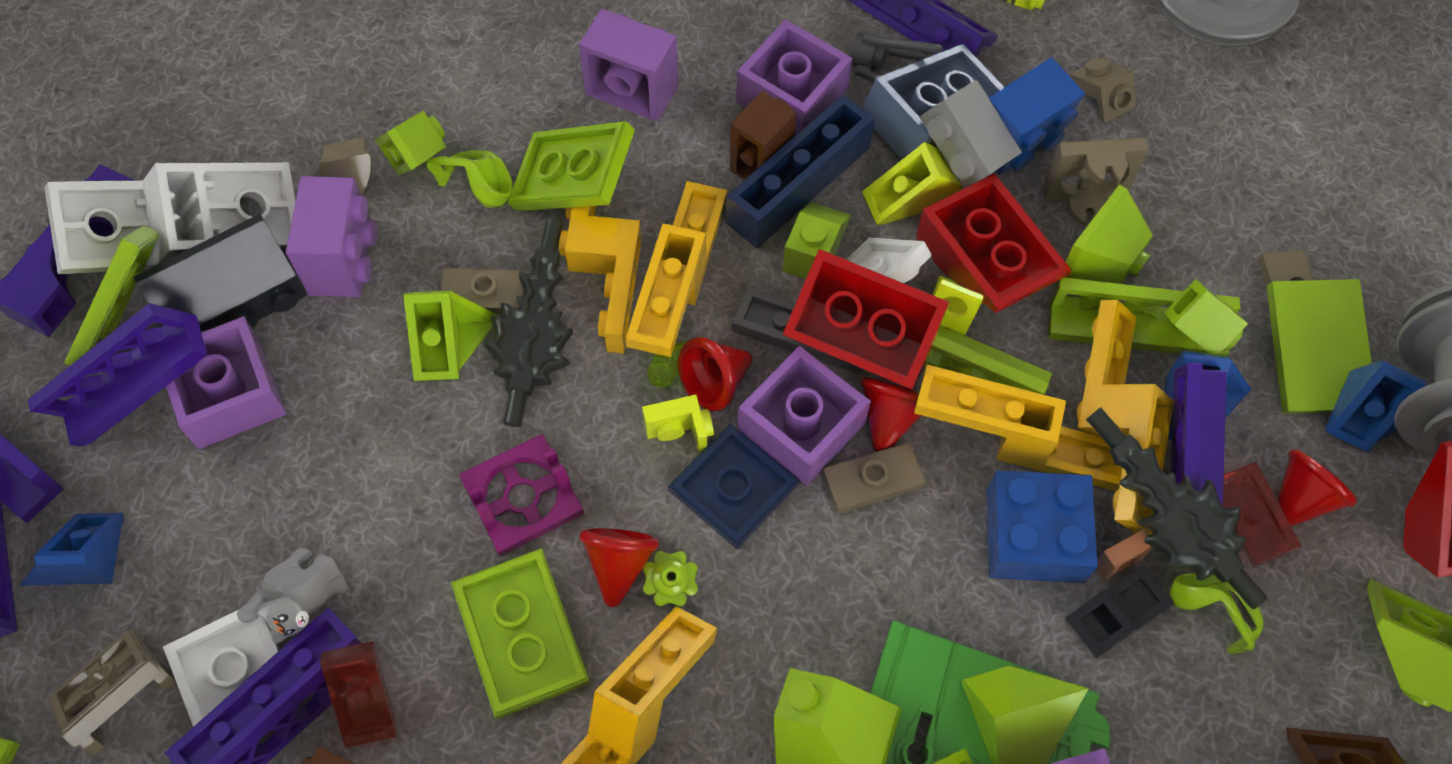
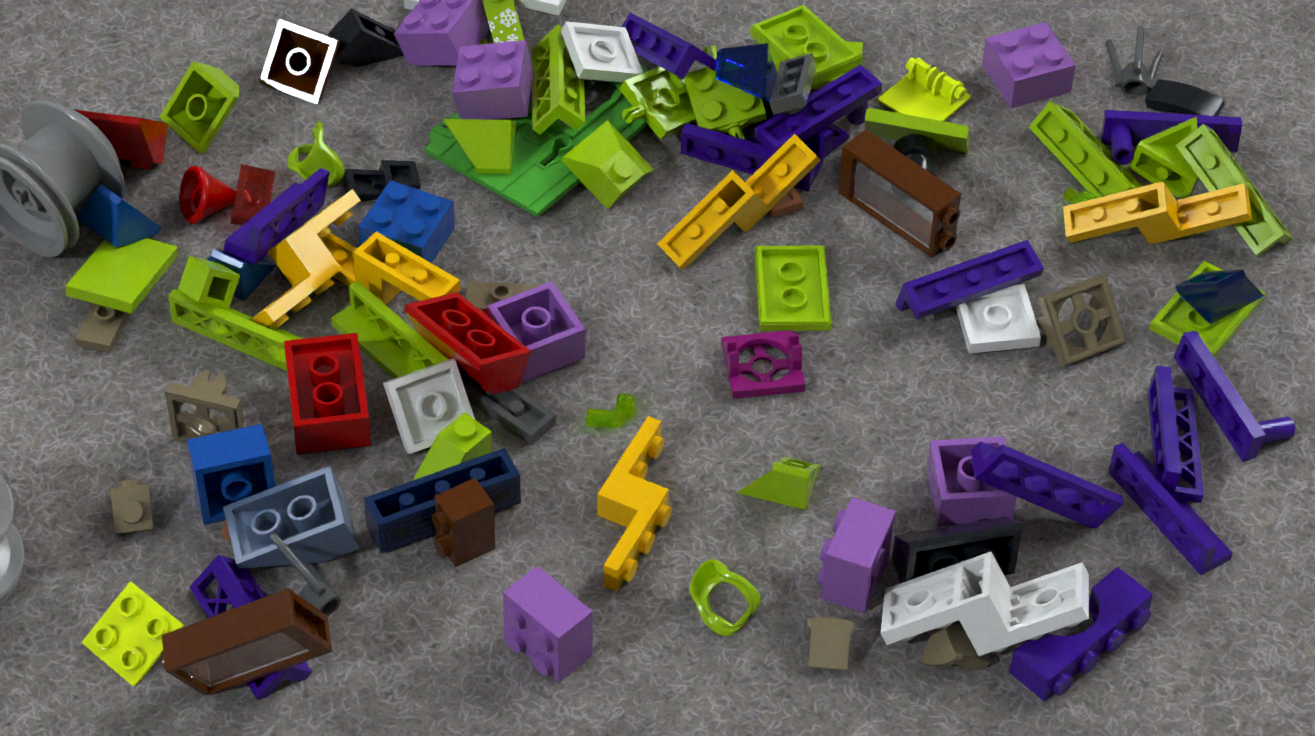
camera: 160 degrees left, 15 degrees down
(79, 552) = (1101, 412): blue slope -> none
(114, 291) = (1042, 536): lime tile -> none
(293, 593) = (937, 330): light grey animal -> none
(358, 694) = (909, 268): clear red plate -> none
(412, 142) = (768, 617): lime slope -> none
(484, 286) = (742, 509): dark tan plate -> none
(529, 337) = (713, 456): pearl dark grey piece -> none
(571, 167) = (637, 550): lime tile -> none
(617, 559) = (691, 300): red hat -> none
(670, 578) = (676, 279): lime plant -> none
(671, 419) = (629, 367): neon yellow bracket -> none
(676, 269) = (580, 452): yellow bracket -> none
(712, 371) = (582, 388): red hat -> none
(733, 486) = (610, 325): dark blue tile -> none
(796, 70) = (406, 577): medium lavender brick -> none
(911, 185) = (354, 465): neon yellow slope -> none
(962, 304) = (378, 372): neon yellow bracket -> none
(970, 134) = (298, 451): light grey brick -> none
(1111, 242) = (247, 366): lime slope -> none
(1122, 555) = (367, 194): nougat tile -> none
(1185, 522) = (321, 176): pearl dark grey piece -> none

